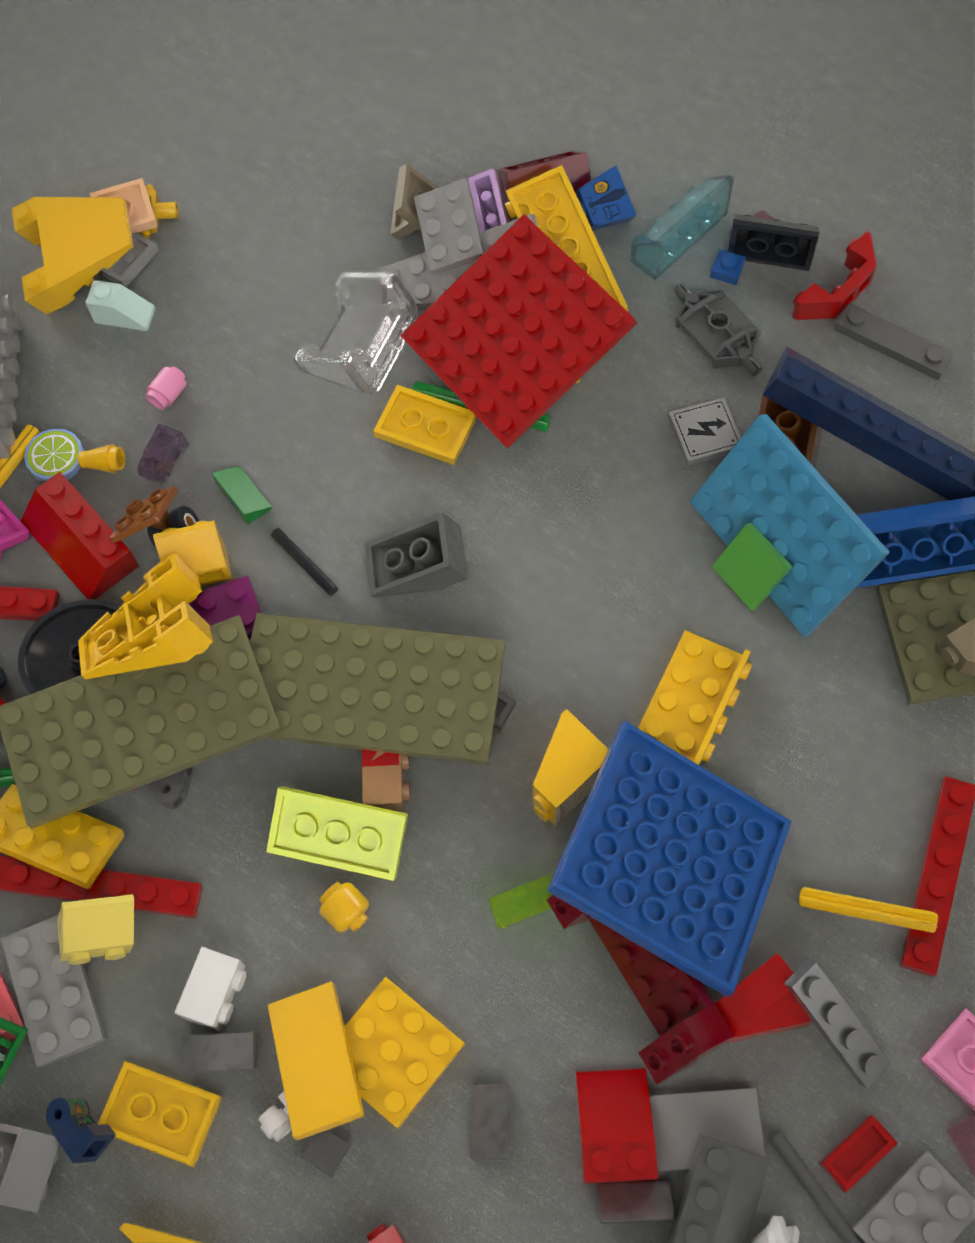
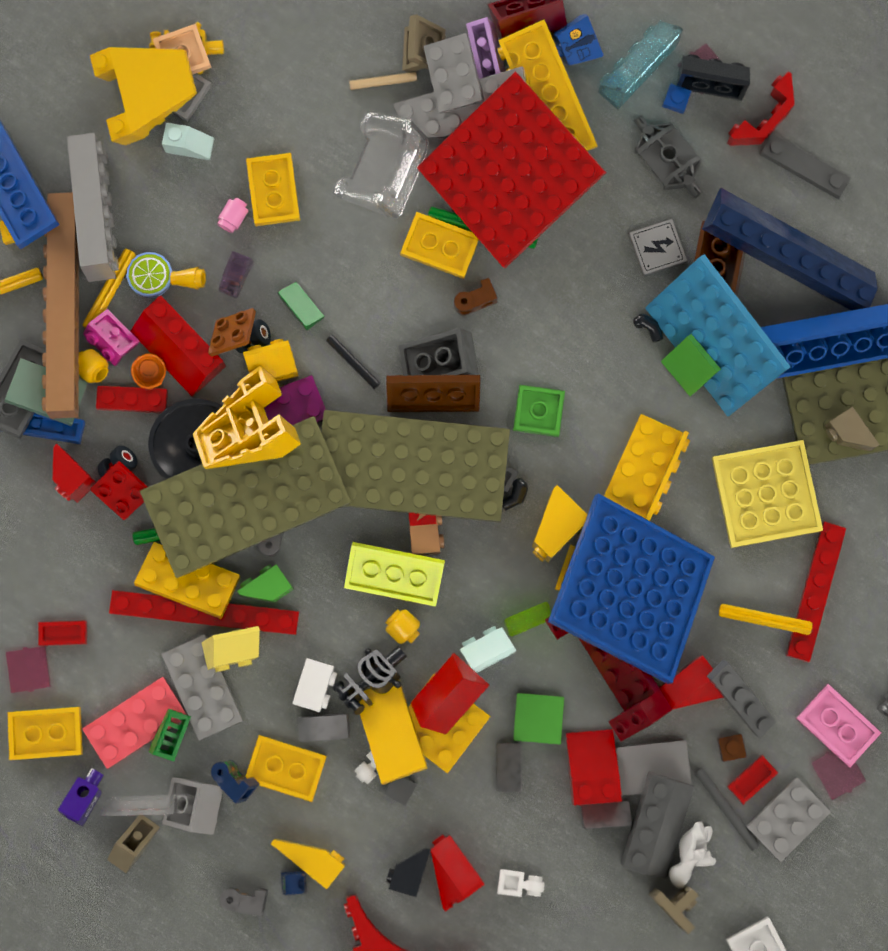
camera: 10 degrees left, 15 degrees up
(34, 565) = (148, 371): none -> orange hair
(159, 847) = (268, 586): none -> bright green slope
(219, 360) = (273, 189): none -> yellow plate
(267, 1000) = (355, 692): none -> black torso
(366, 246) = (384, 80): none -> tan bar
(400, 1006) = (448, 695): none -> red slope
(404, 596) = (433, 393): none -> reddish brown plate
(463, 944) = (487, 650): none -> light aqua slope
(468, 487) = (475, 300): none -> reddish brown leg
(515, 733) = (518, 495): none -> black arm
(535, 1049) = (538, 718): none -> bright green tile
(547, 626) = (539, 410): none -> bright green tile
(698, 521) = (650, 324): none -> black arm
(825, 1102) = (731, 747): none -> reddish brown plate
(862, 738) = (767, 494): none -> light yellow plate

